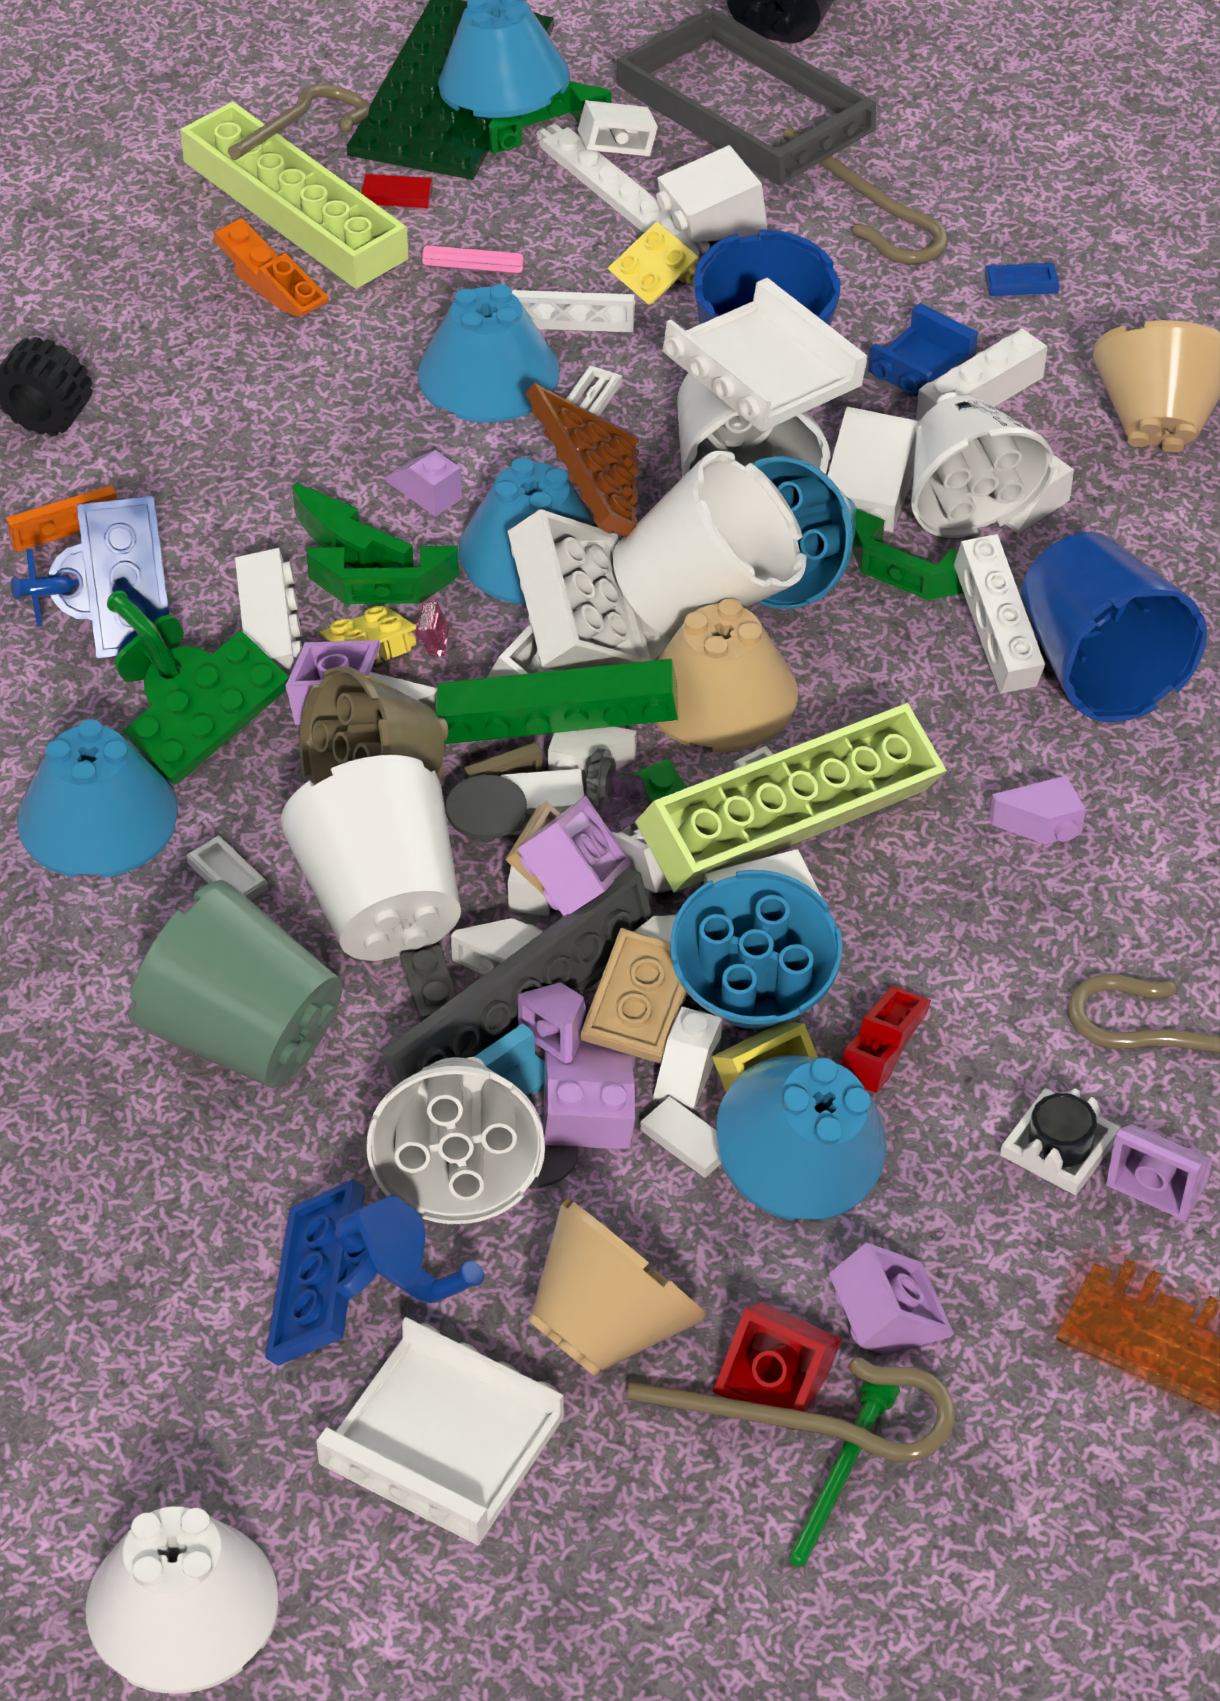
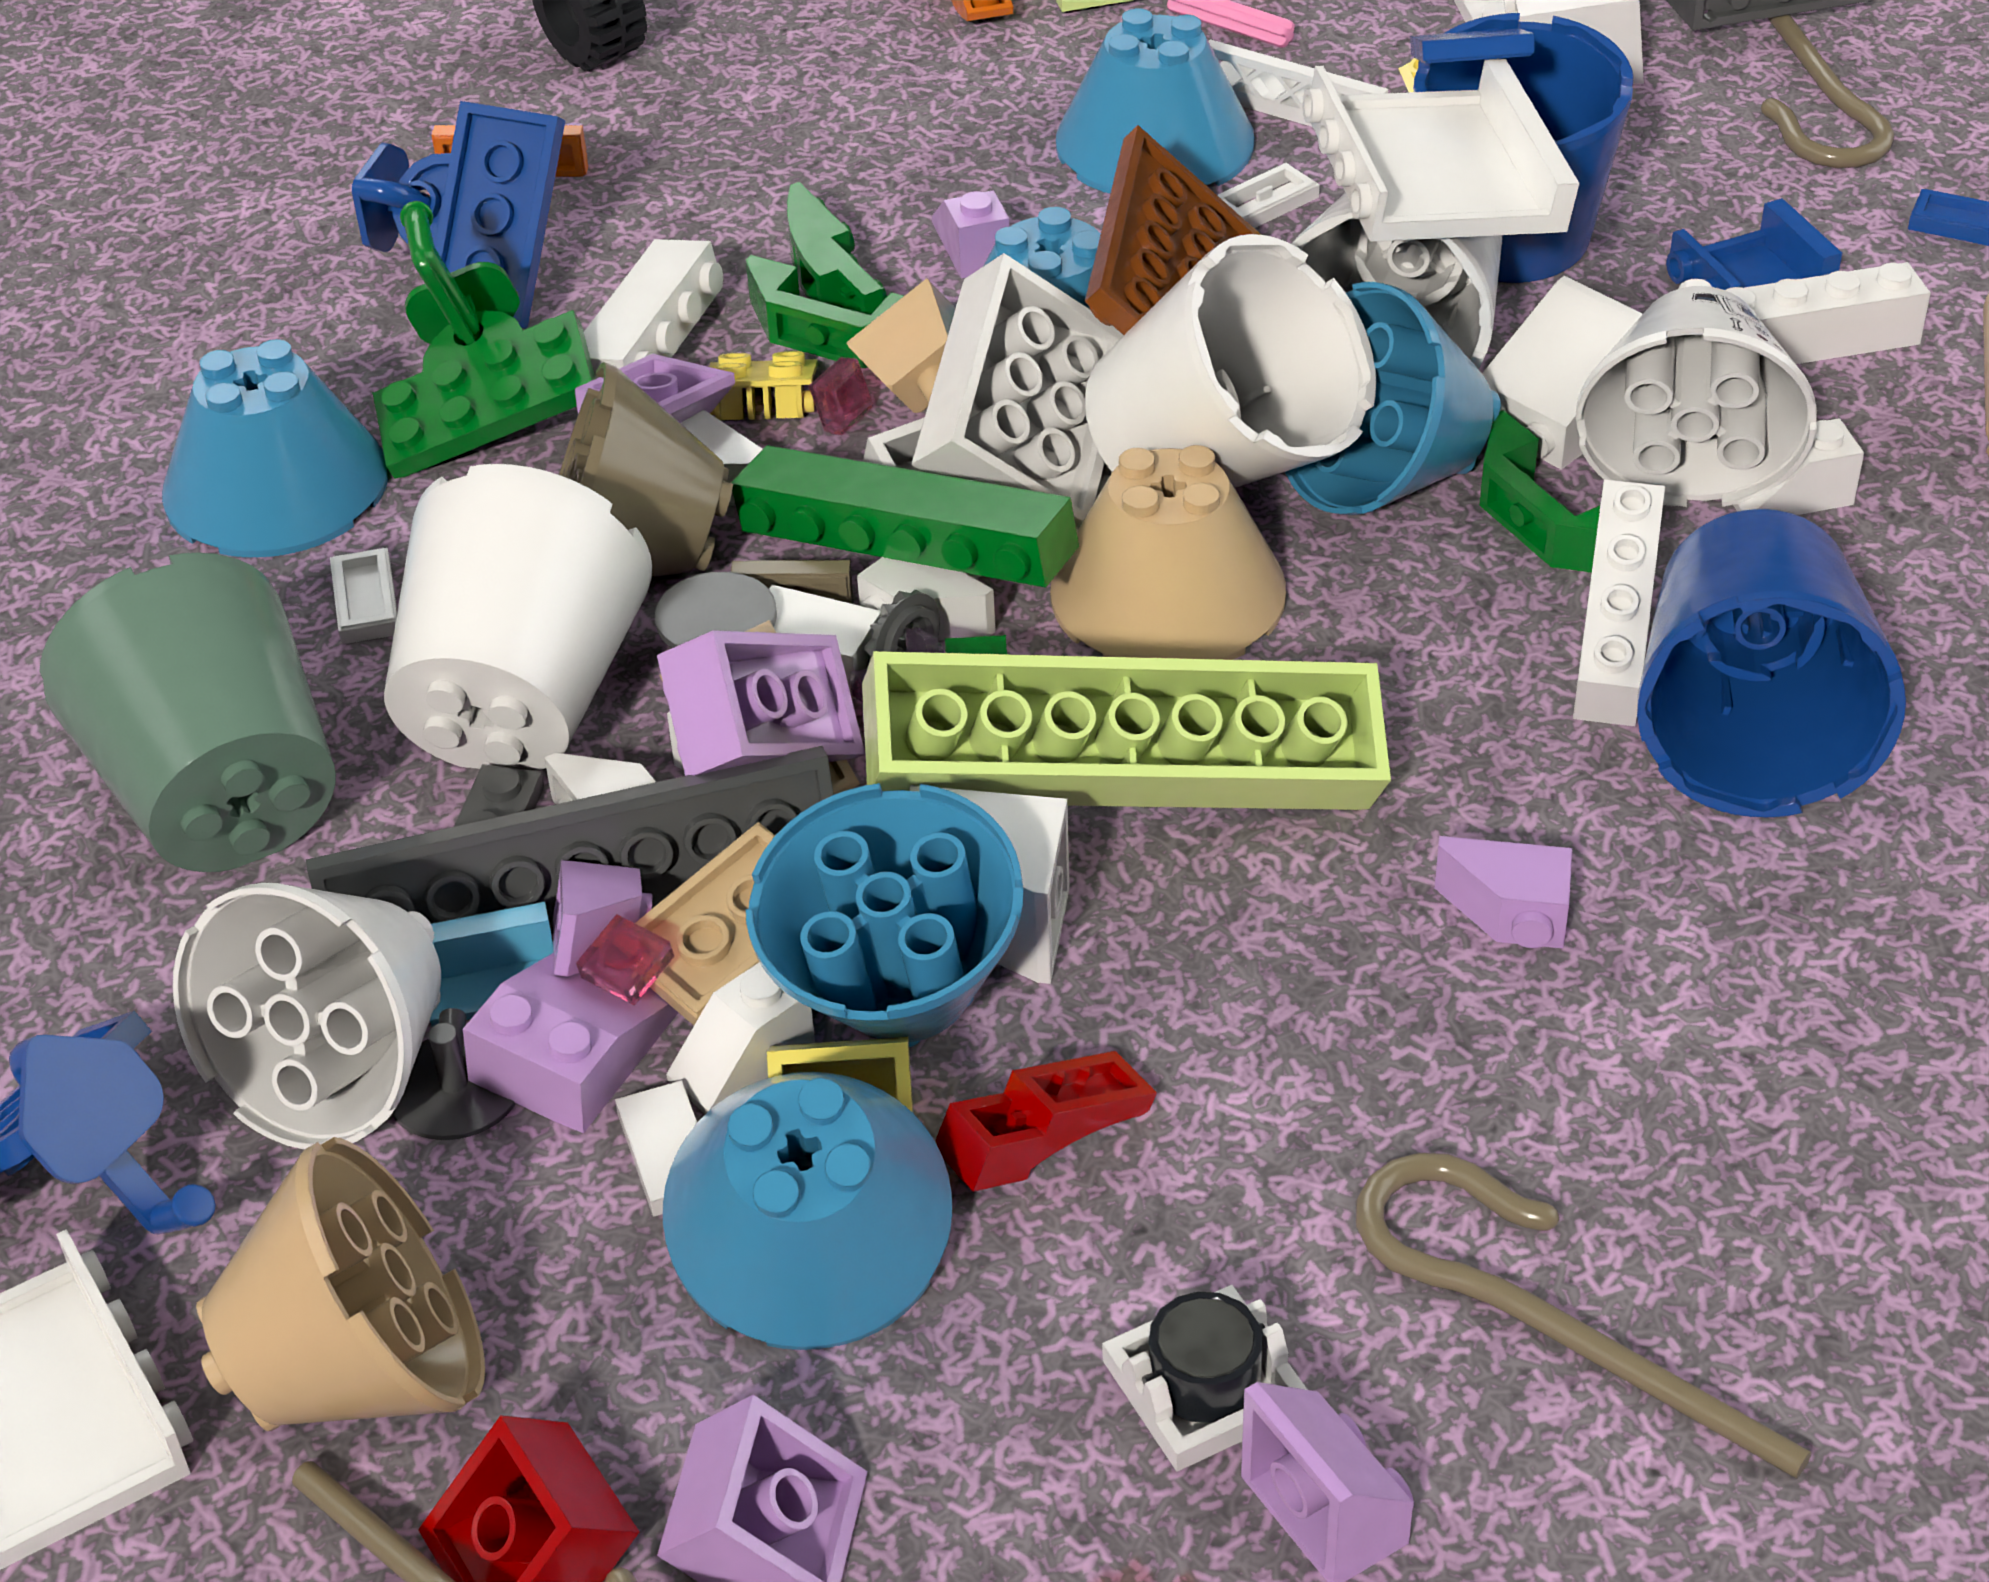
camera: 30 degrees right, 5 degrees down
(466, 583) = (908, 344): none -> tan torso
(602, 1038) = (625, 959): none -> clear pink plate
(735, 271) = (1472, 45): none -> blue tile

